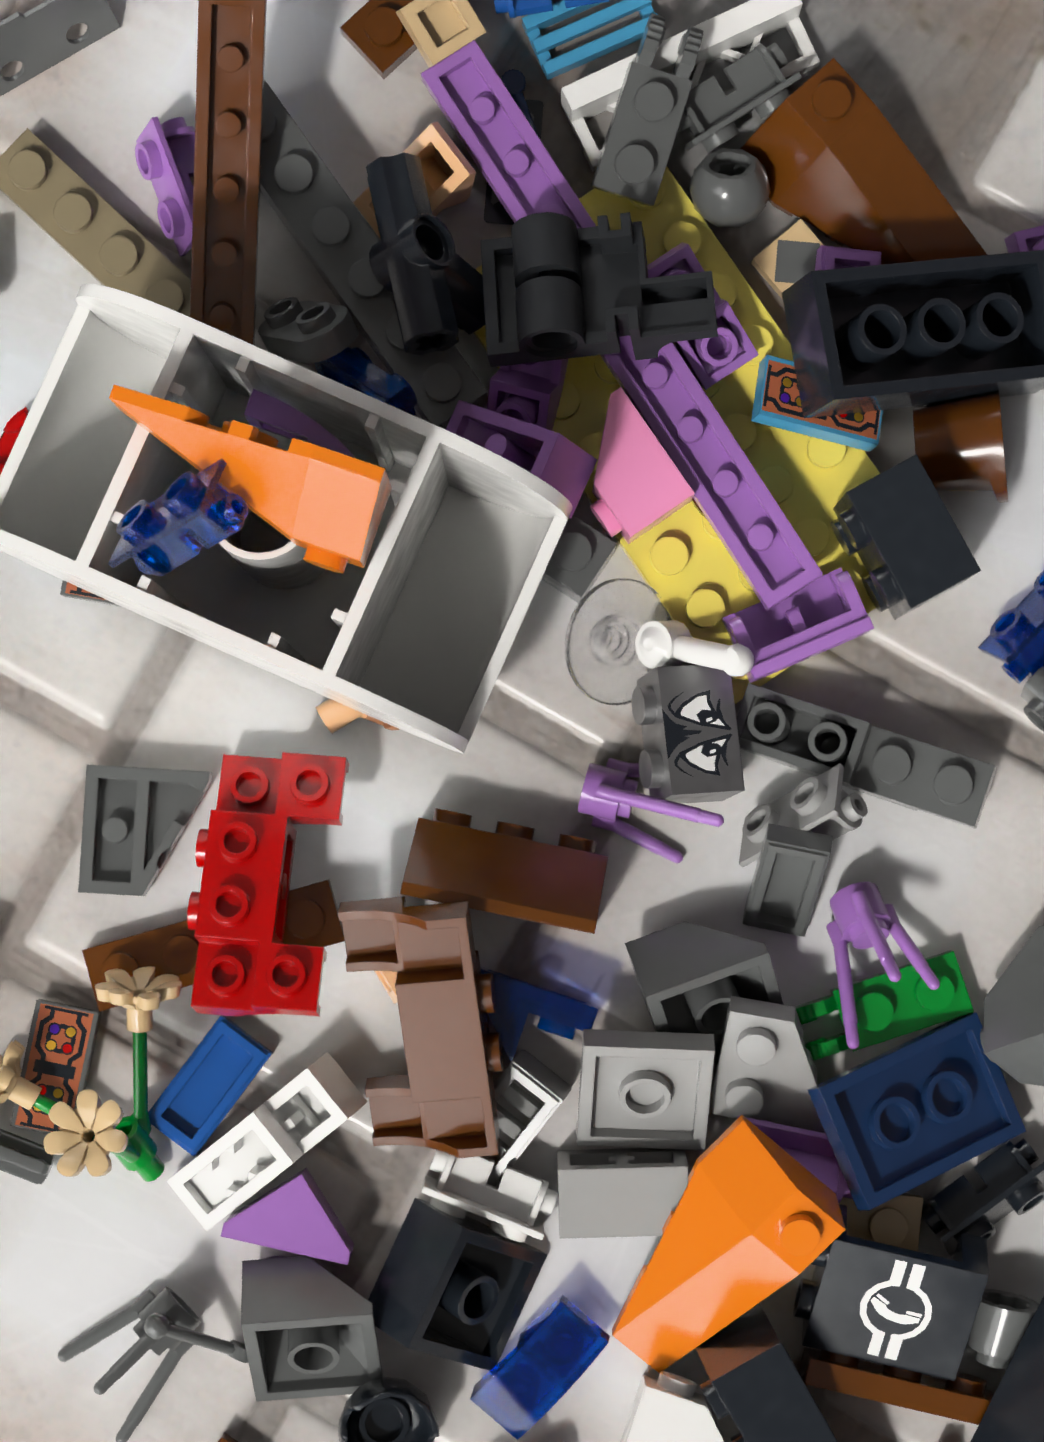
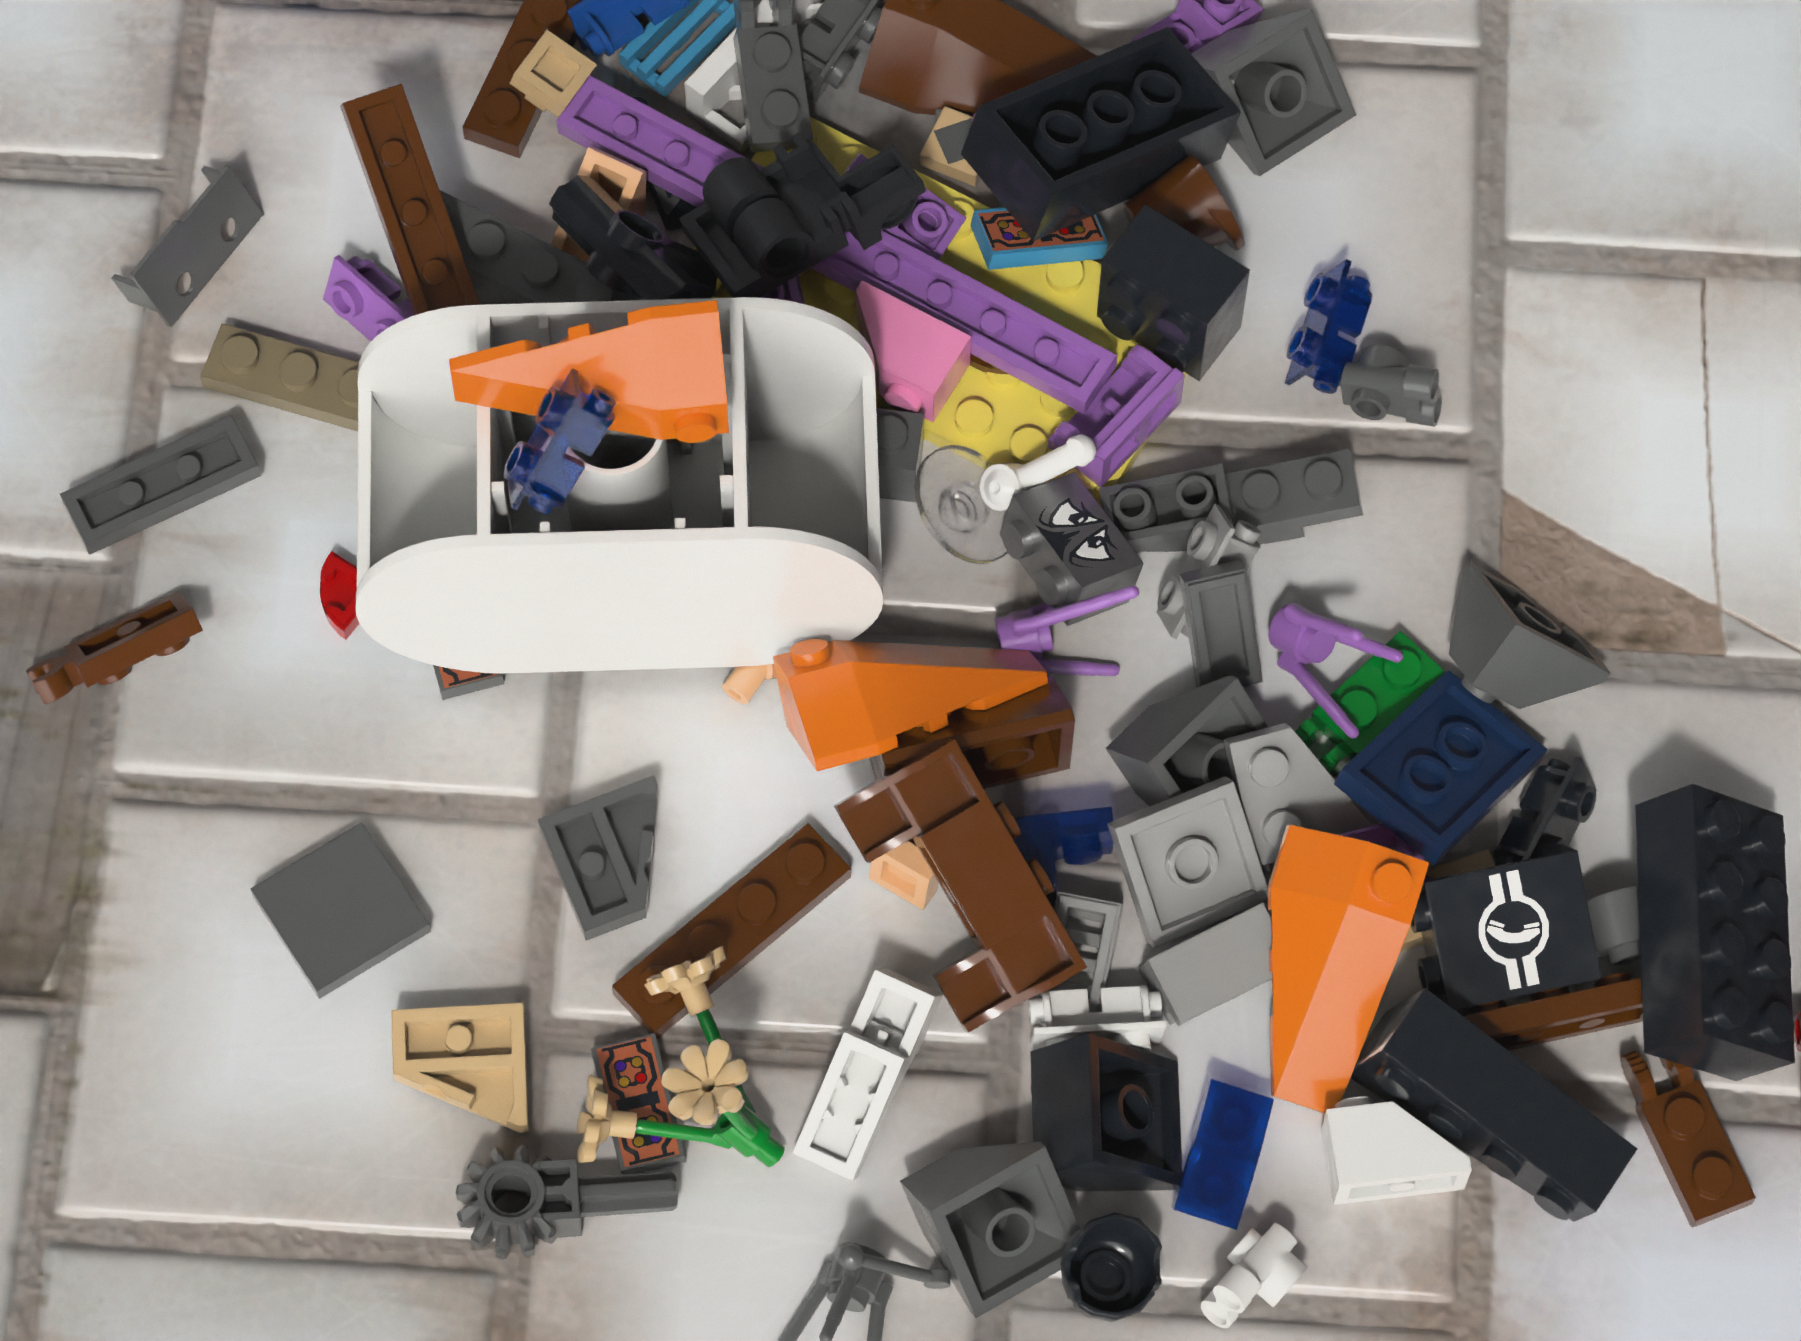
camera: 30 degrees left, 20 degrees down
(208, 1085) = (789, 1054): blue tile -> none
(247, 885) = (744, 869): red bracket -> none
(293, 1220) = (925, 1127): medium lavender slope -> none
(438, 811) = (857, 695): none -> orange wedge
(730, 188) = (871, 105): dark grey piece -> none

